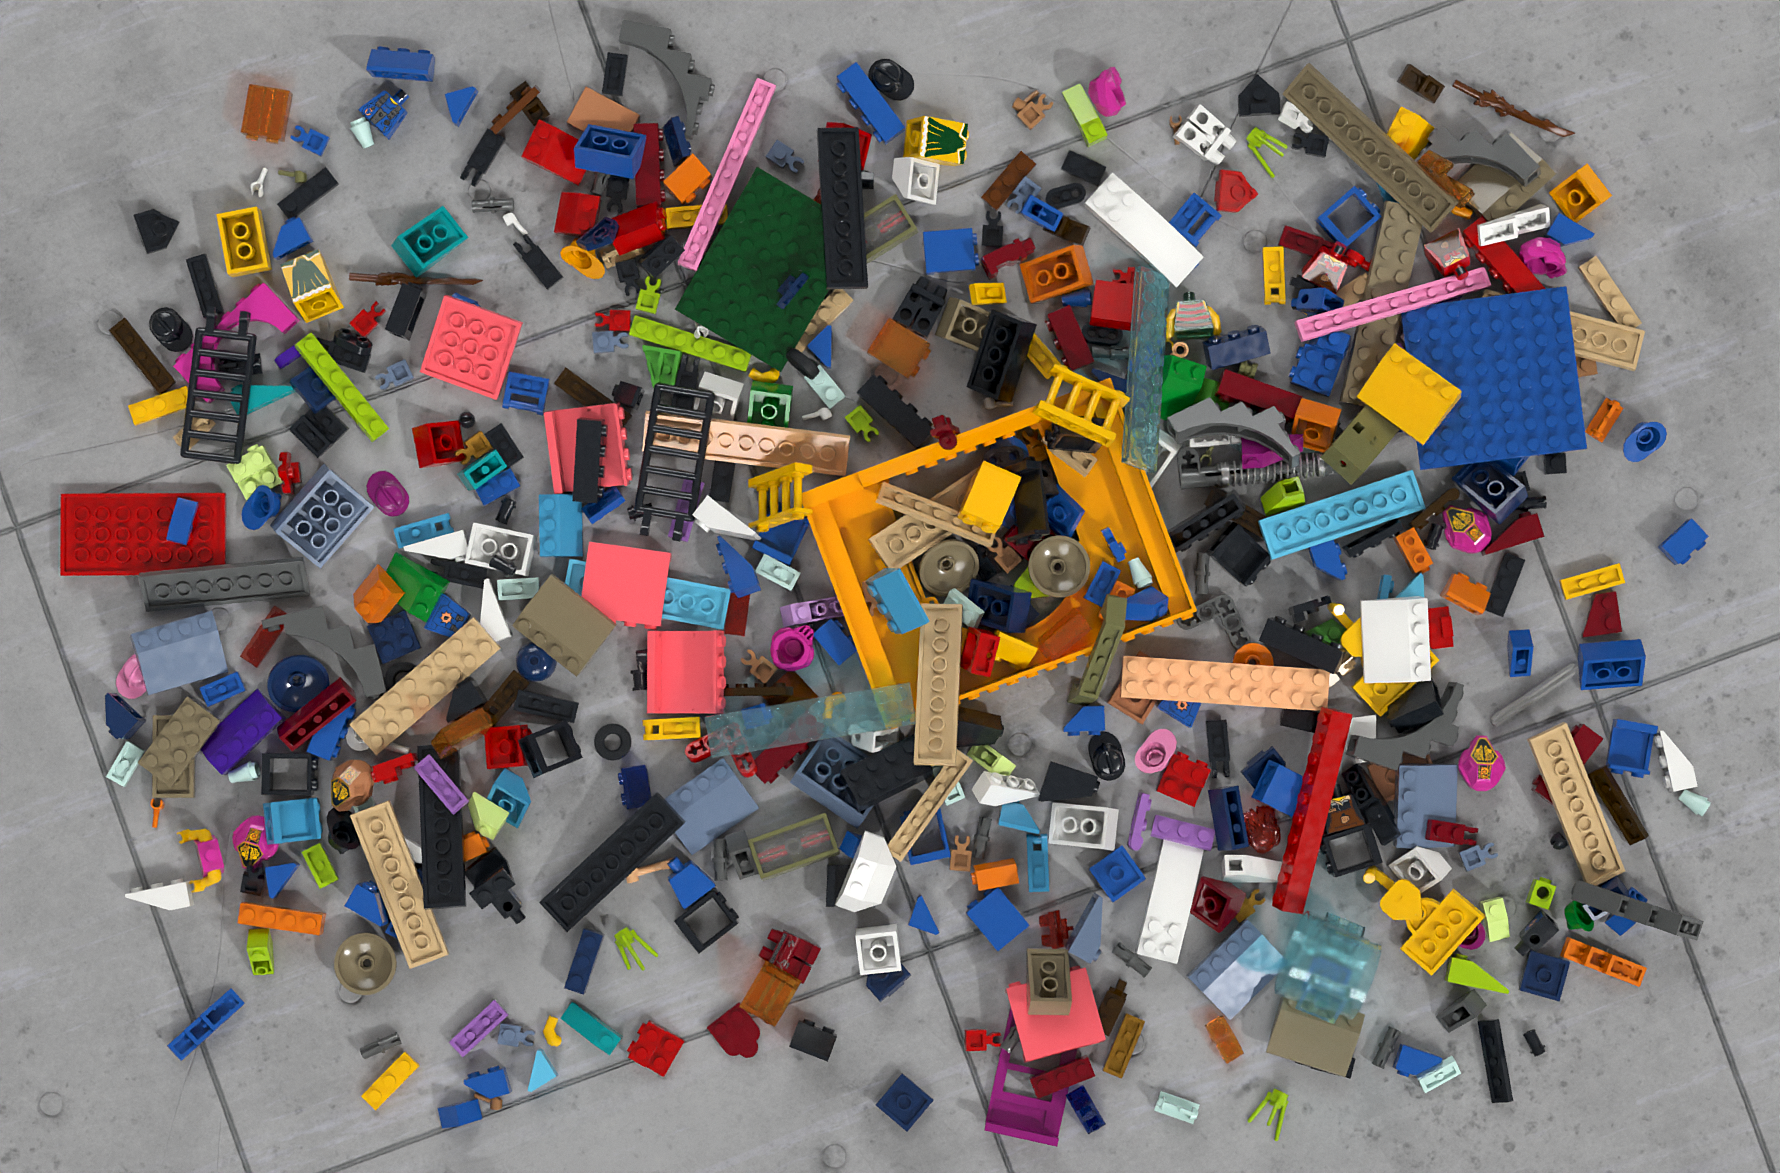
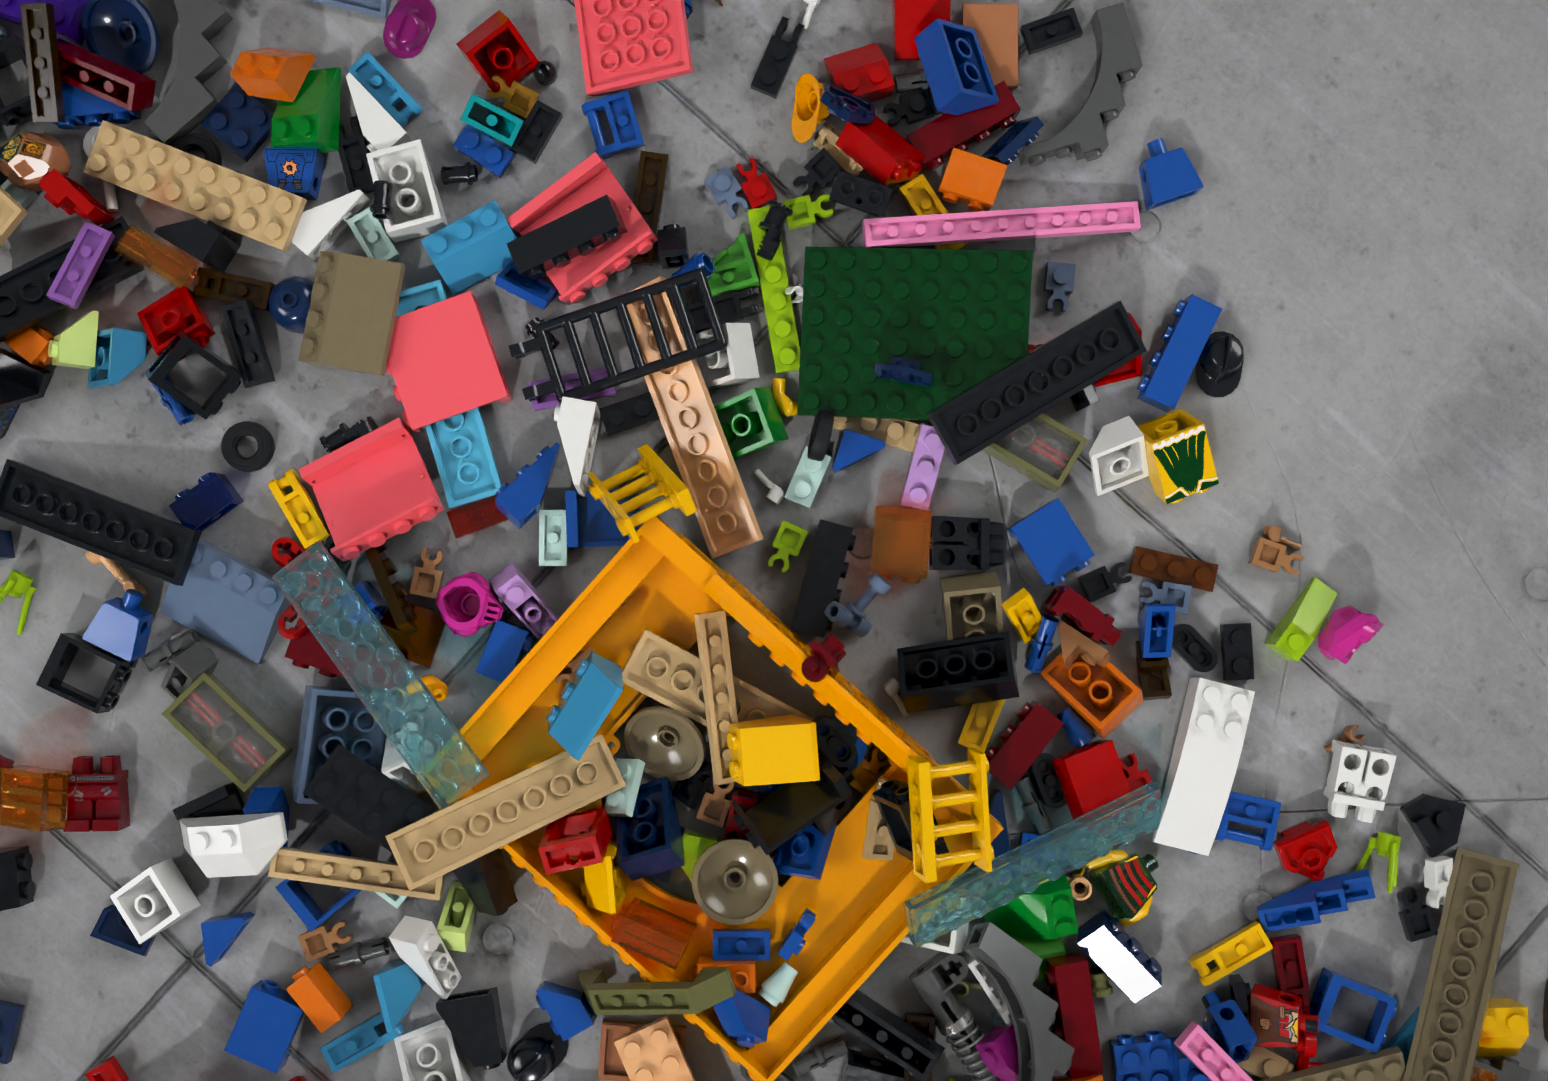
camera: 60 degrees right, 0 degrees up
(298, 739) = (42, 62): none -> dark brown plate
(557, 775) = (180, 412): none -> blue pin
(648, 386) = (697, 261): none -> blue cone
(649, 323) = (772, 227): none -> black connector
(750, 49) = (1167, 175): none -> blue torso
(859, 309) = (923, 469): none -> lavender plate
(929, 404) = (852, 615): none -> sand blue bar
(1012, 293) = (1041, 643): none -> blue pin
(1023, 270) = (1075, 643): none -> medium nougat slope
(1267, 203) = (1318, 898): none -> blue slope

